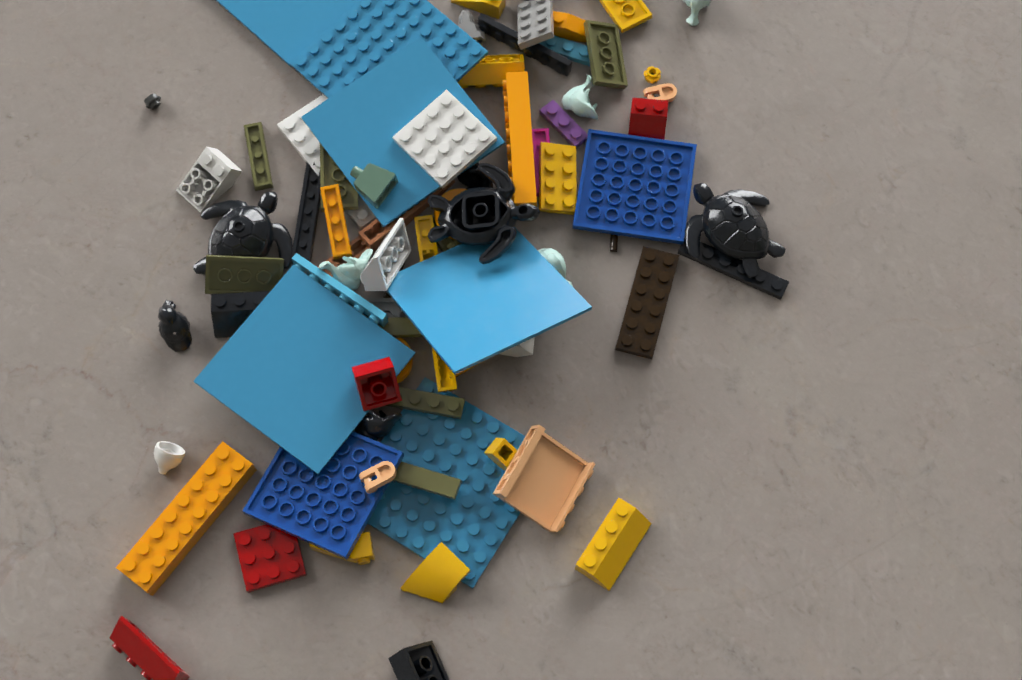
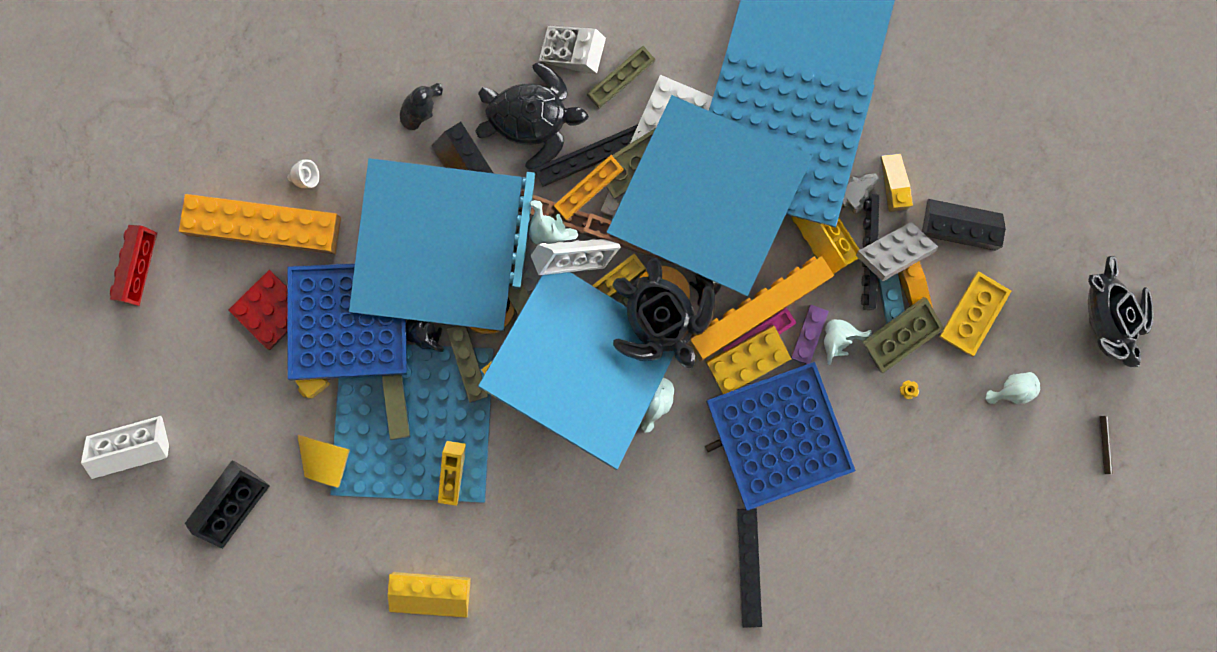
camera: 60 degrees right, 15 degrees up
(241, 274) = (493, 137): olive plate -> none
(374, 183) = (638, 200): sand green torso -> none
(376, 383) = (452, 315): red slope -> none
(385, 473) = (376, 369): light nougat plate -> none
(444, 139) = (719, 239): white plate -> none
(544, 480) = (450, 507): light nougat panel -> none
(647, 302) = (671, 507): dark brown plate -> none
(648, 118) = (856, 412): red slope -> none
(665, 92) = (896, 413): light nougat plate -> none
(732, 227) = (786, 548): black animal -> none

